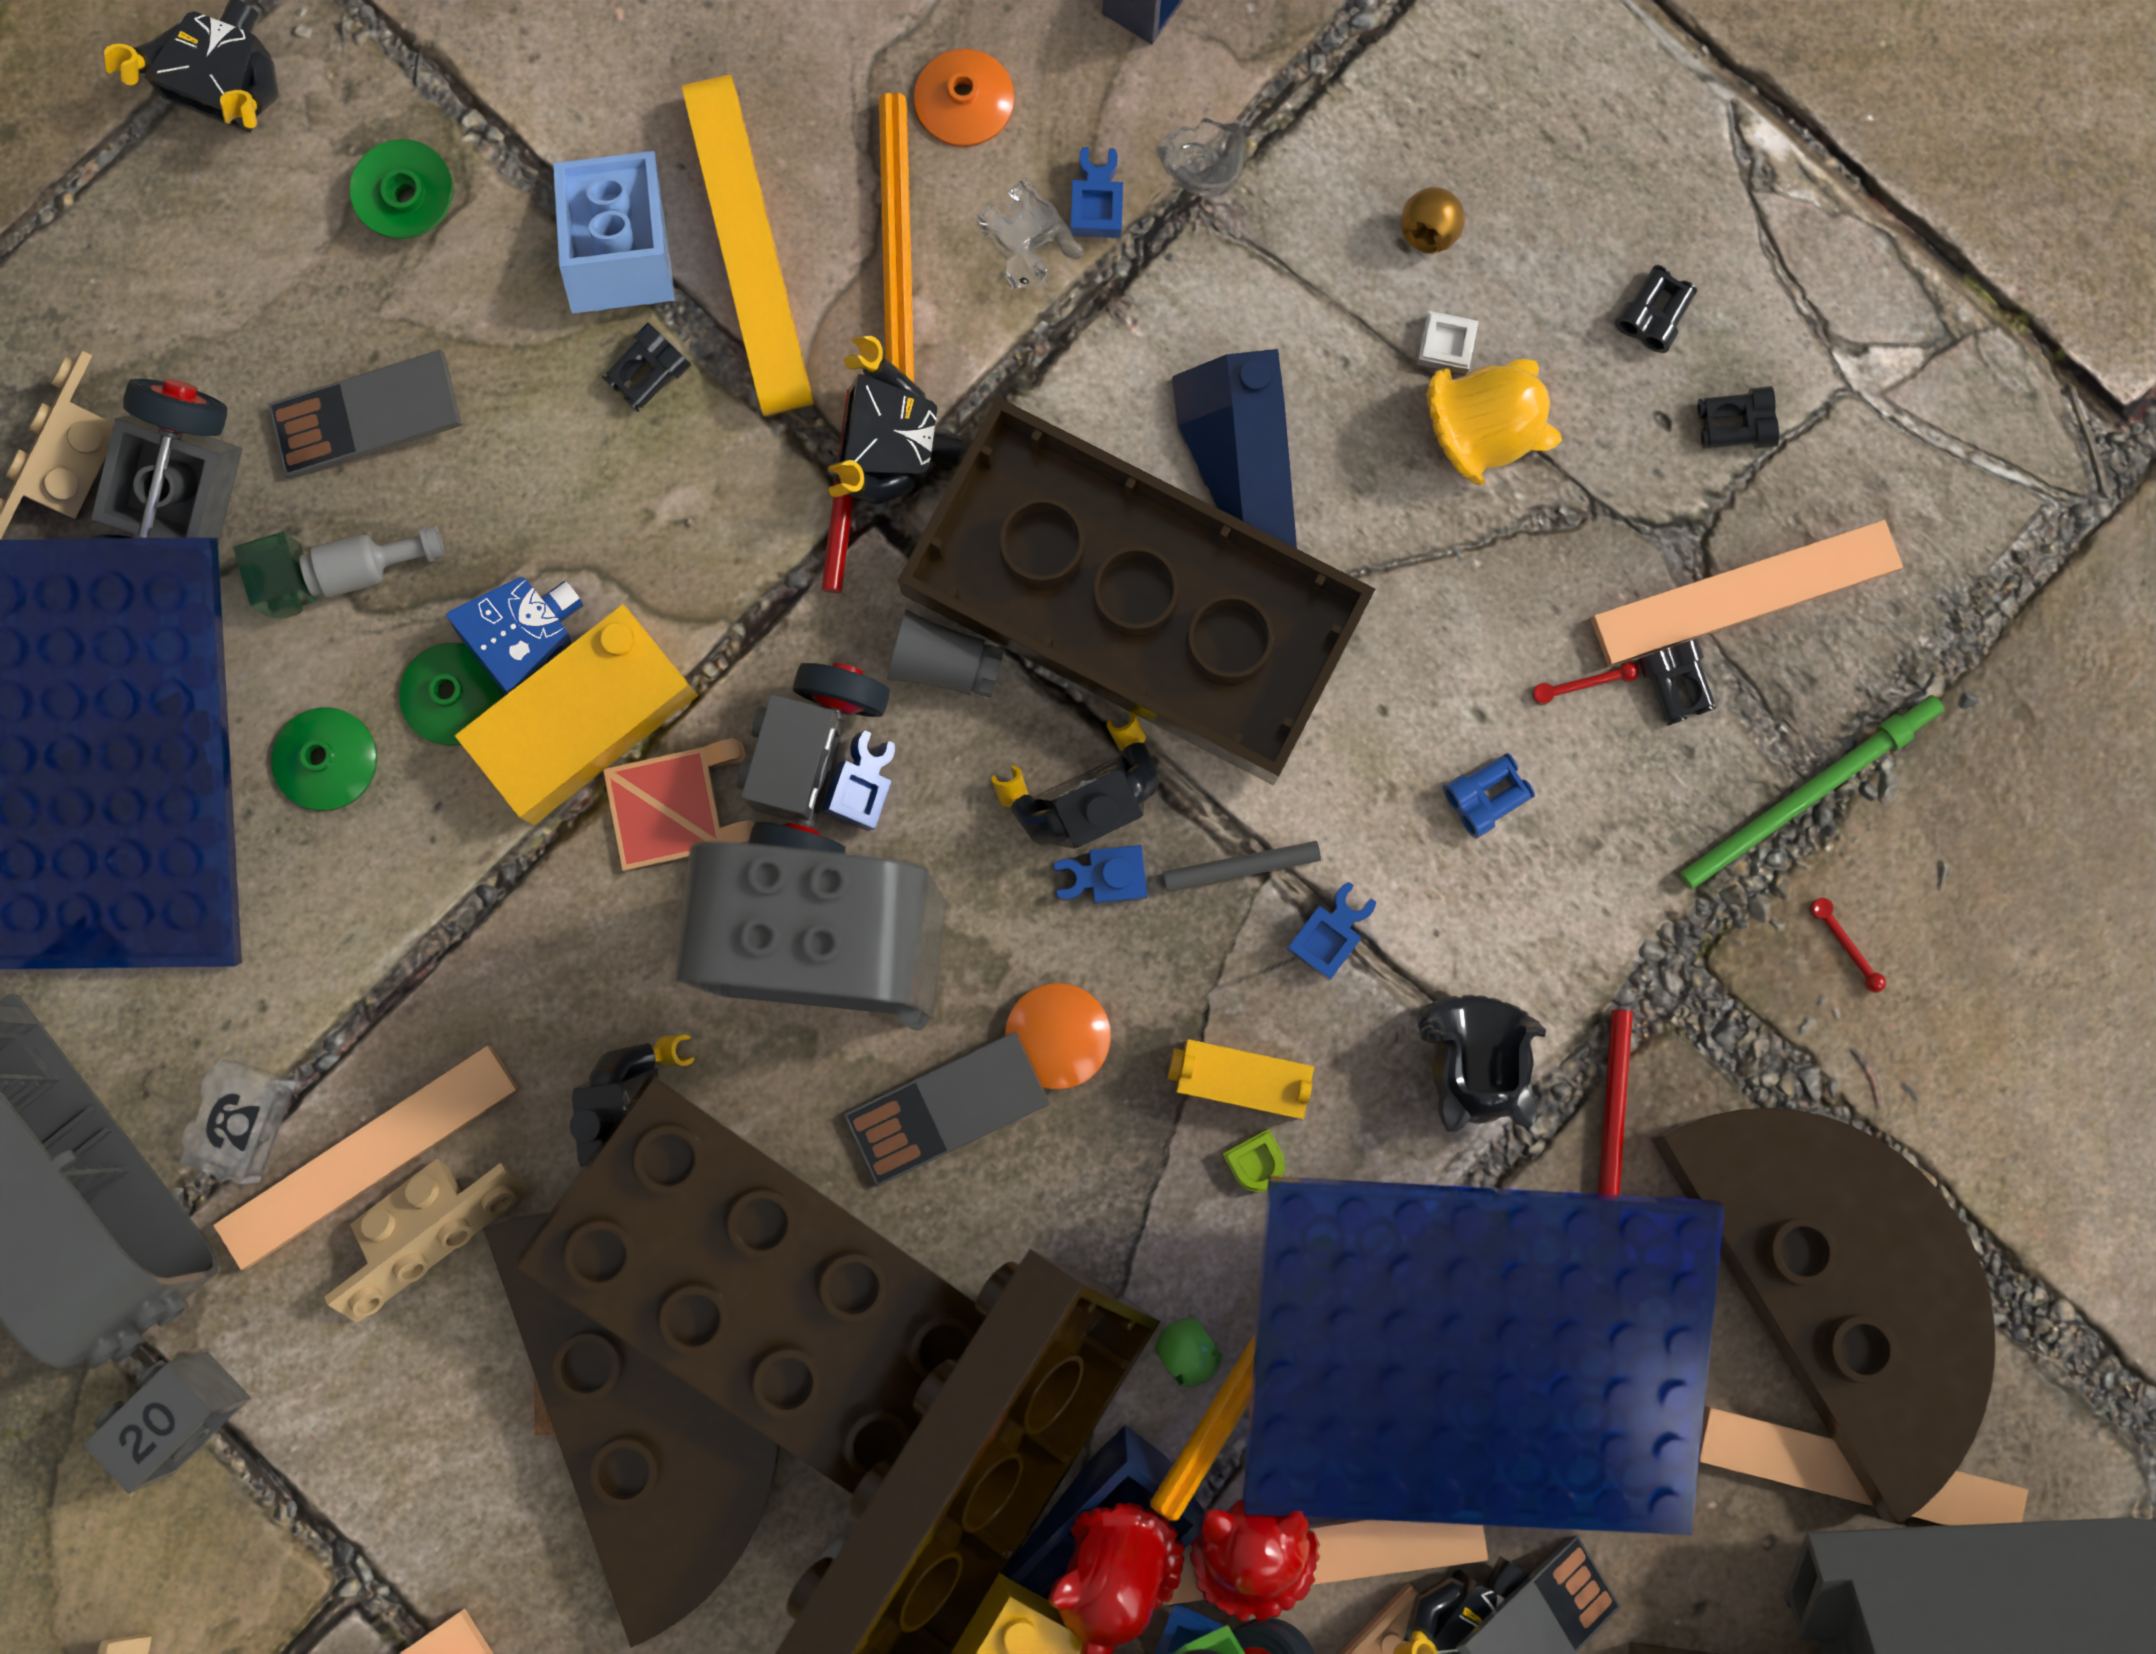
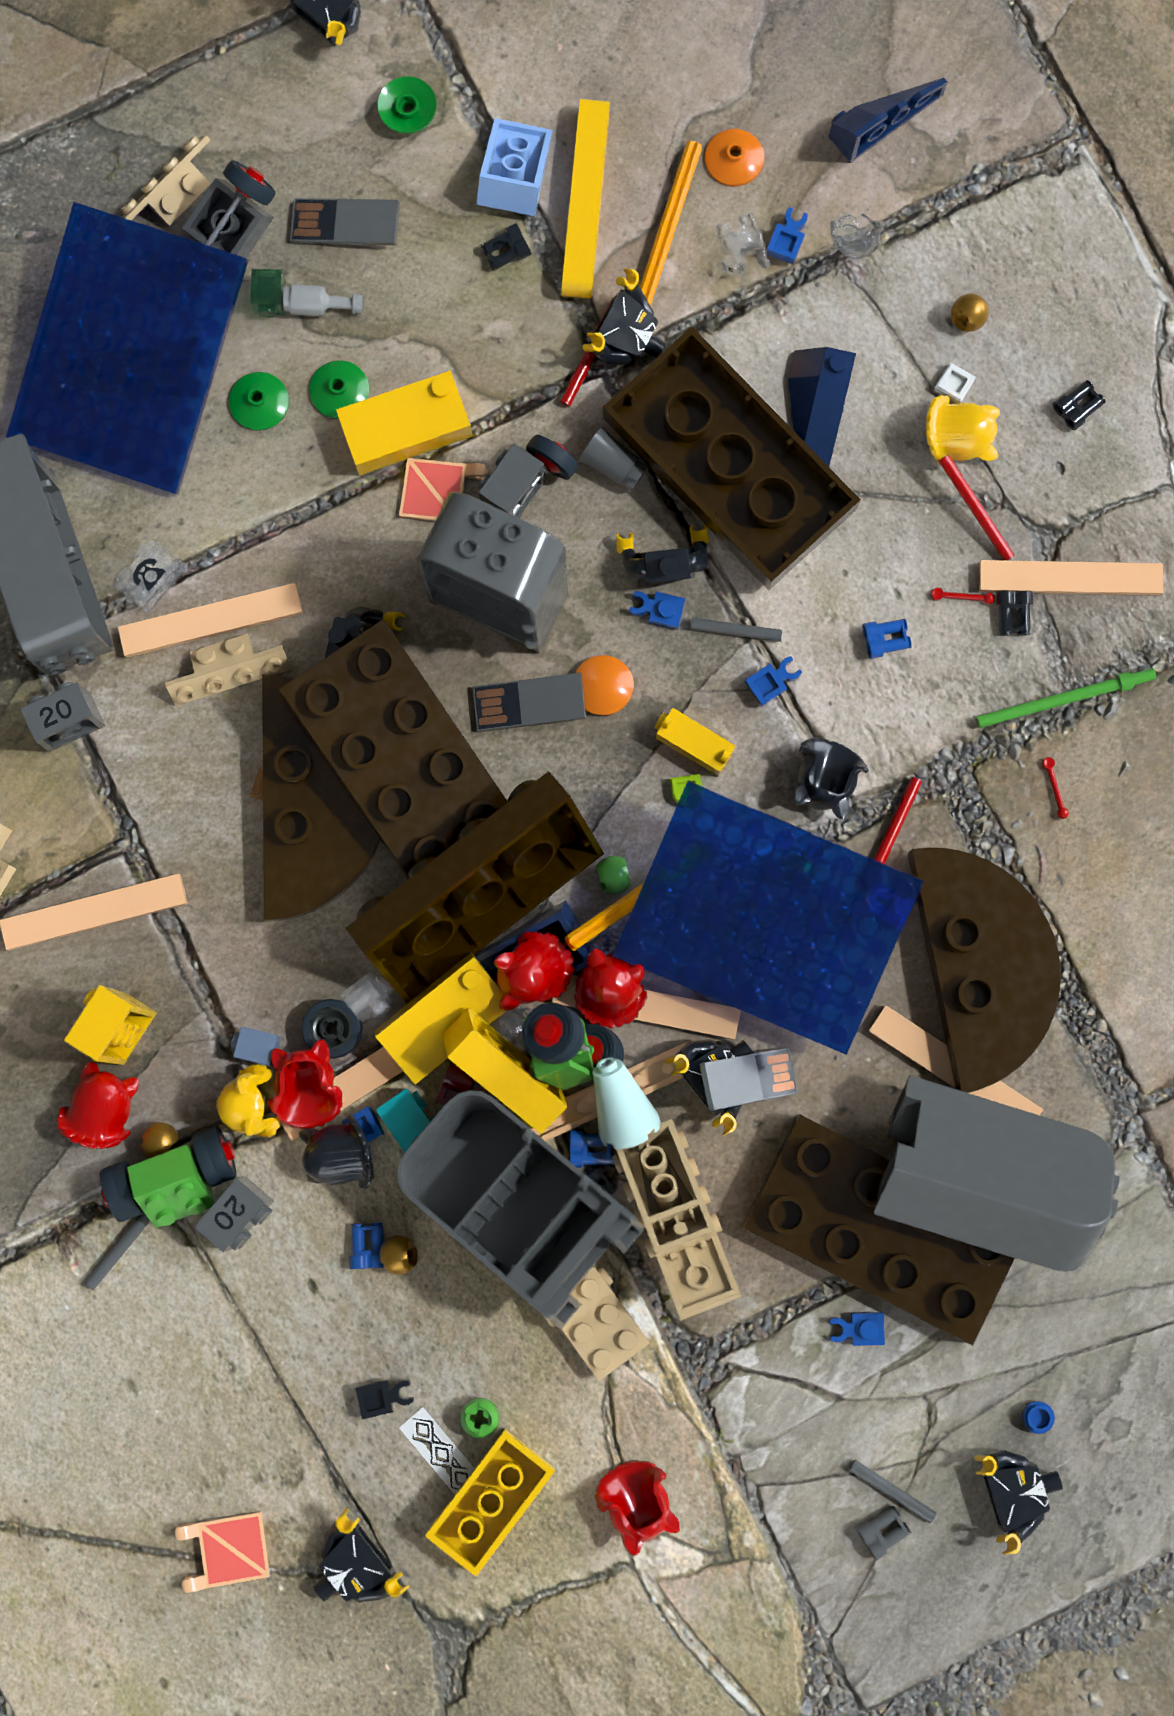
camera: 25 degrees right, 0 degrees up
(515, 629) = (386, 364): blue torso -> none
(856, 788) = (543, 512): plate -> none
(1558, 533) = (976, 507): none -> red bar
(1759, 419) = (1112, 486): black piece -> none

